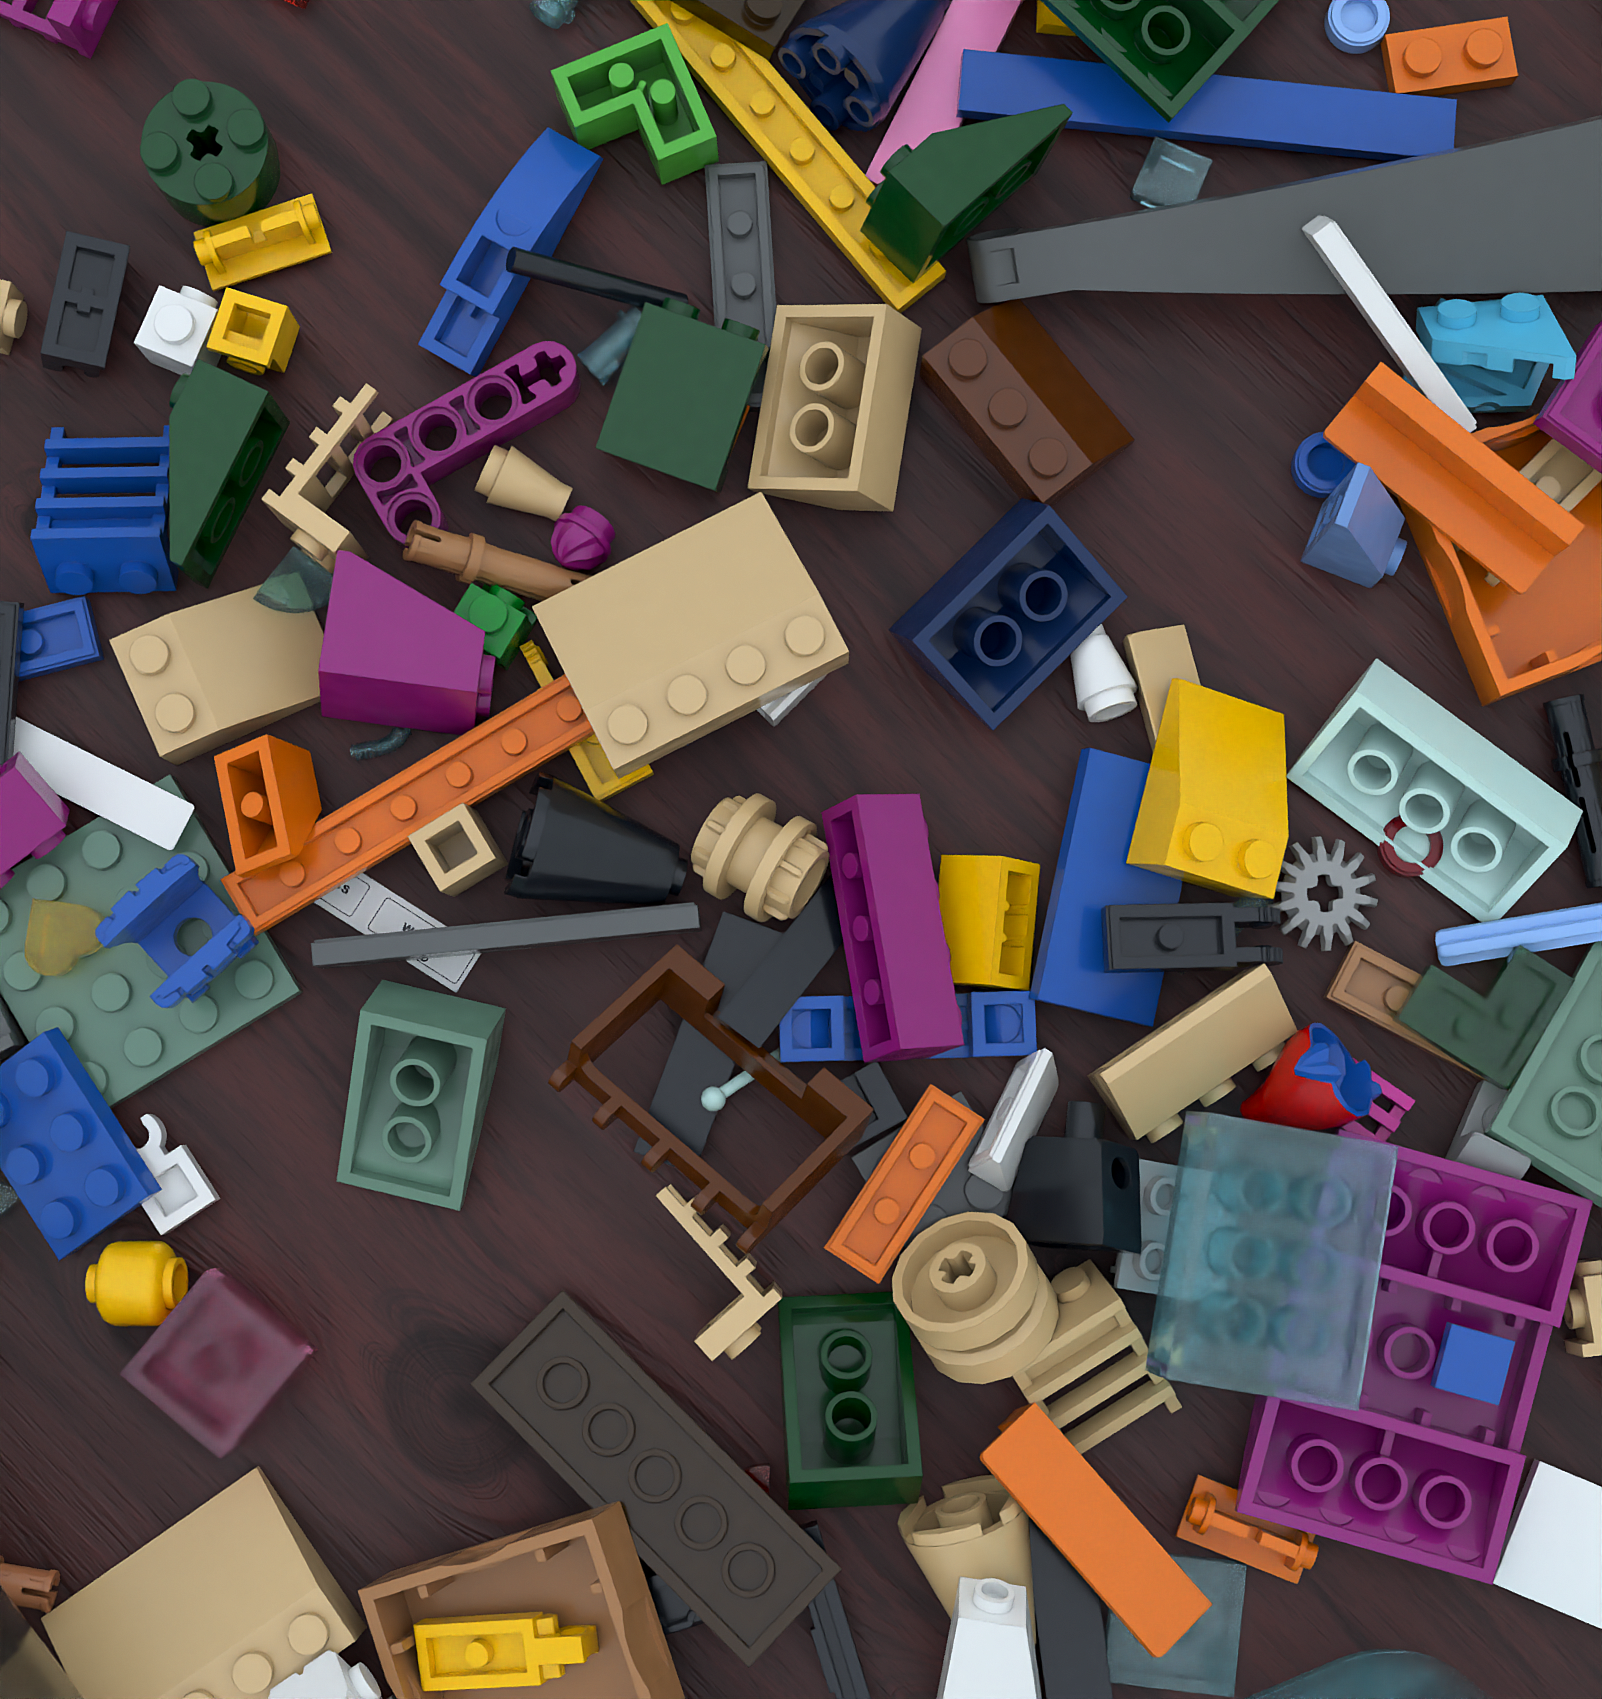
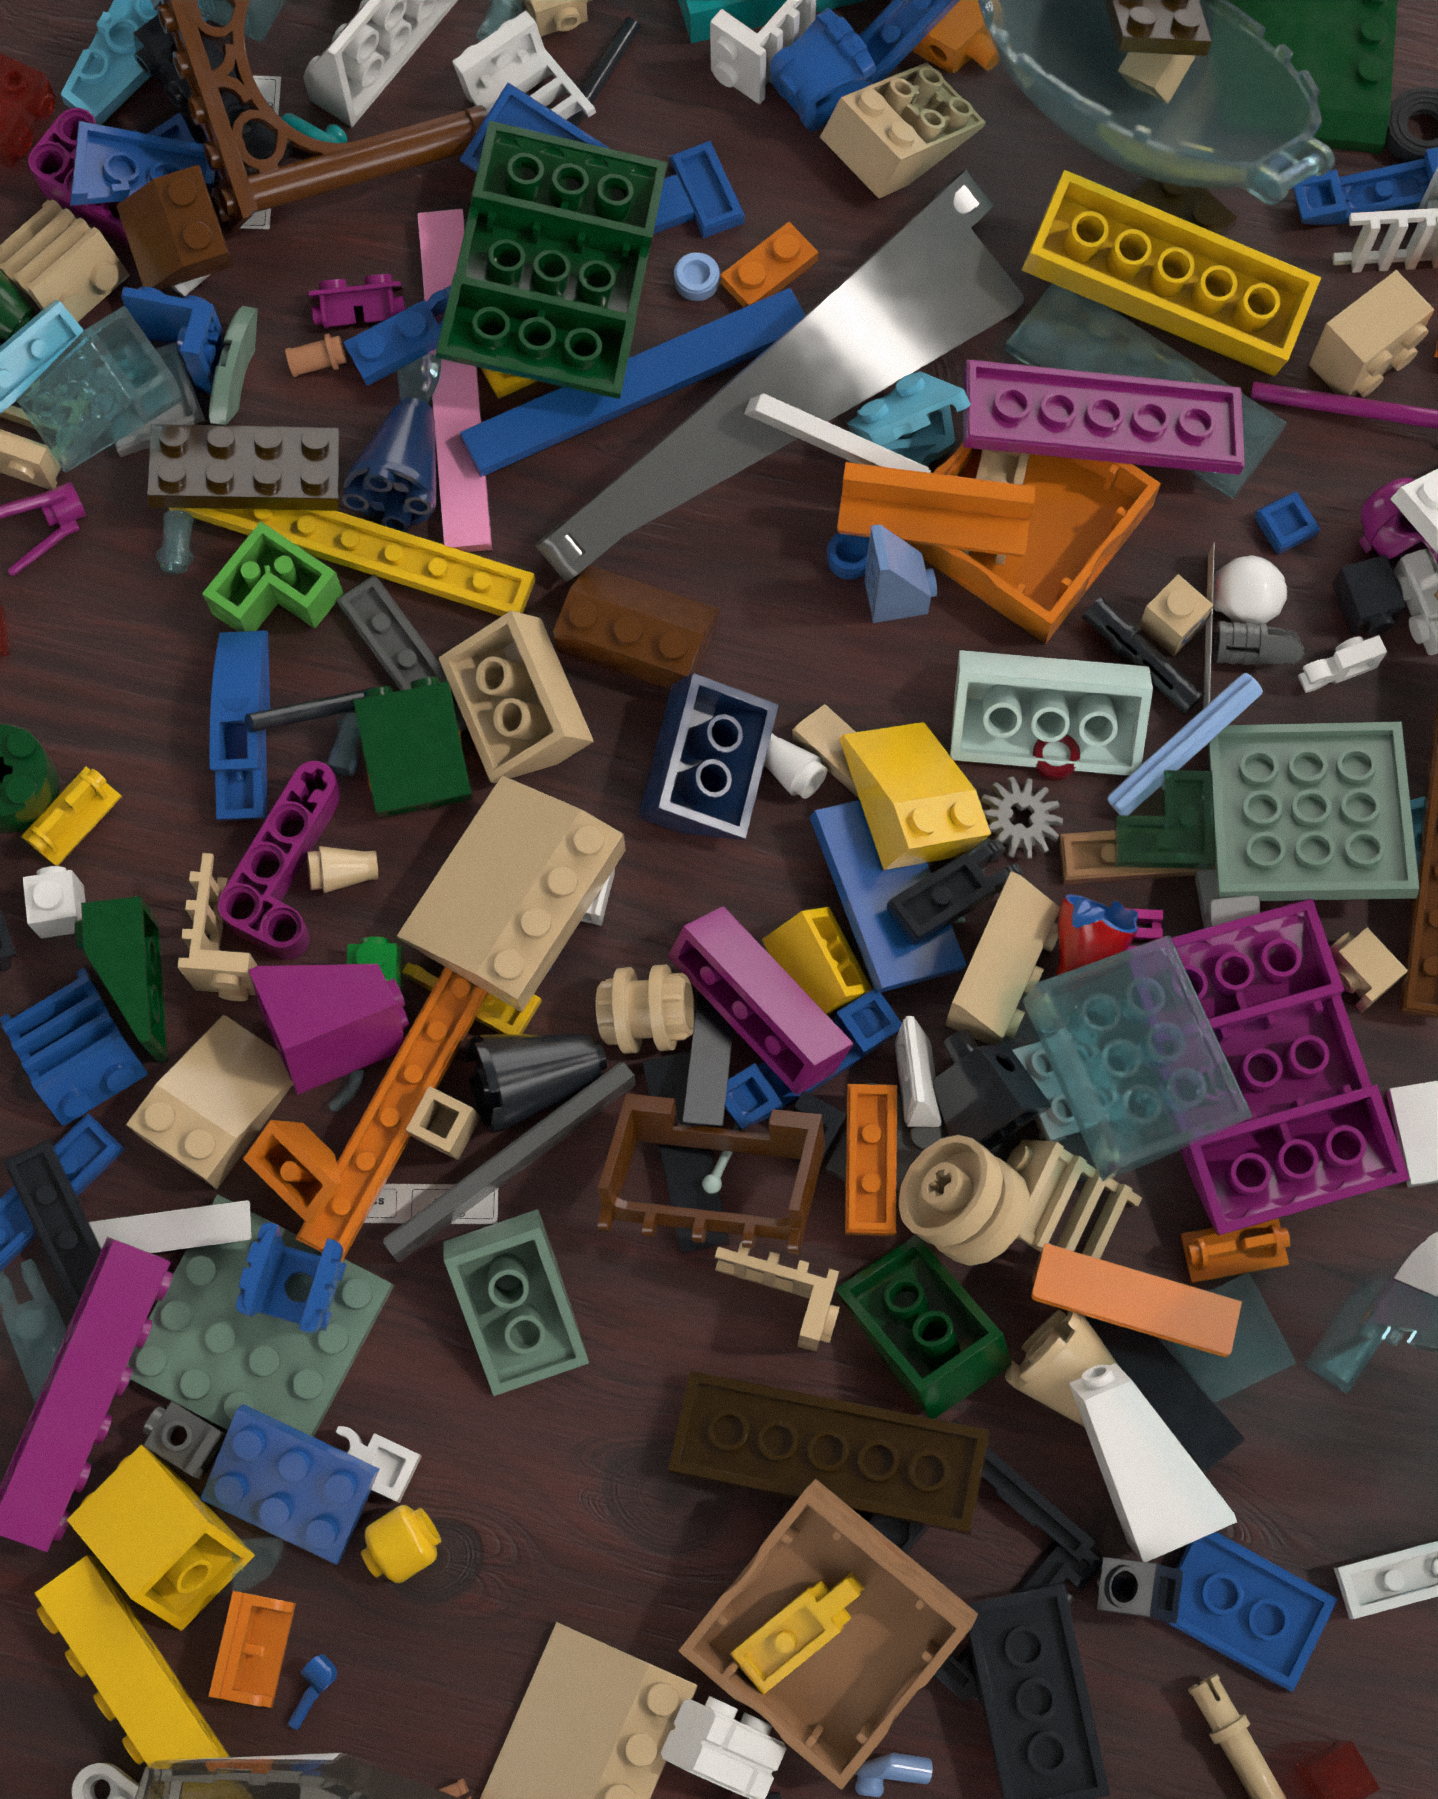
camera: 30 degrees left, 10 degrees down
(60, 935) = (208, 1340): clear yellow tile -> none
(219, 1361) = (489, 1558): clear pink brick -> none
(253, 333) = (105, 877): yellow brick -> none
(296, 585) = (230, 1019): clear light blue tile -> none
(476, 560) = (342, 929): medium nougat pin -> none
(582, 539) = (401, 878): magenta plate -> none
(954, 184) = (507, 514): dark green slope -> none
(1170, 175) = (638, 434): clear light blue tile -> none
(1472, 1363) = (1305, 1048): blue tile -> none

